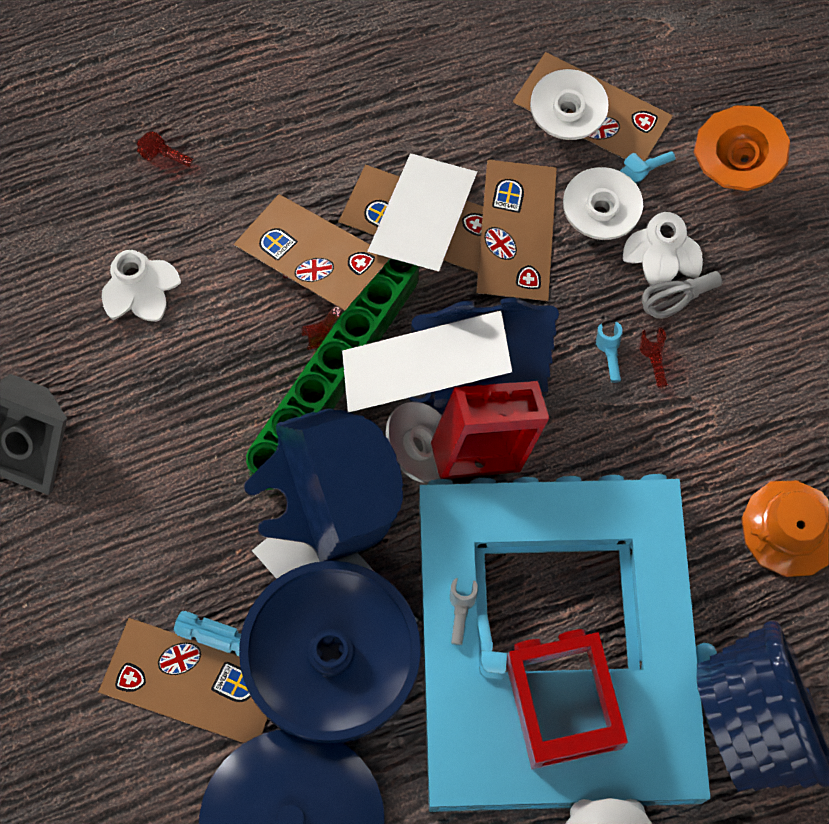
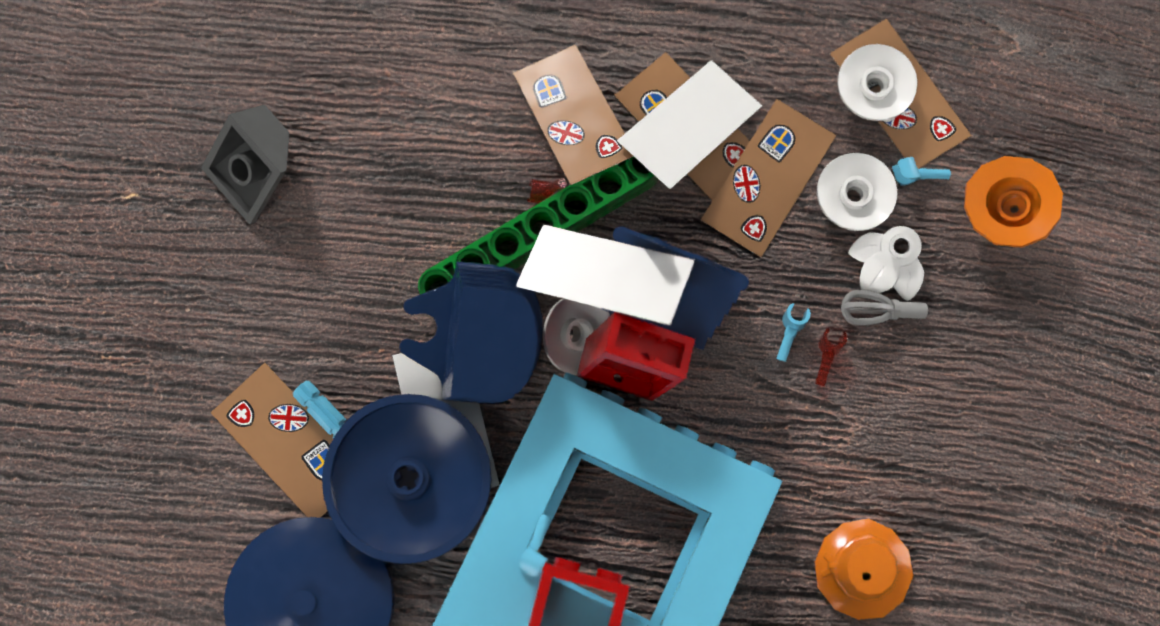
camera: 30 degrees right, 10 degrees up
(138, 292) = (411, 80): white plate -> none
(461, 605) = (529, 503): light grey hand -> none

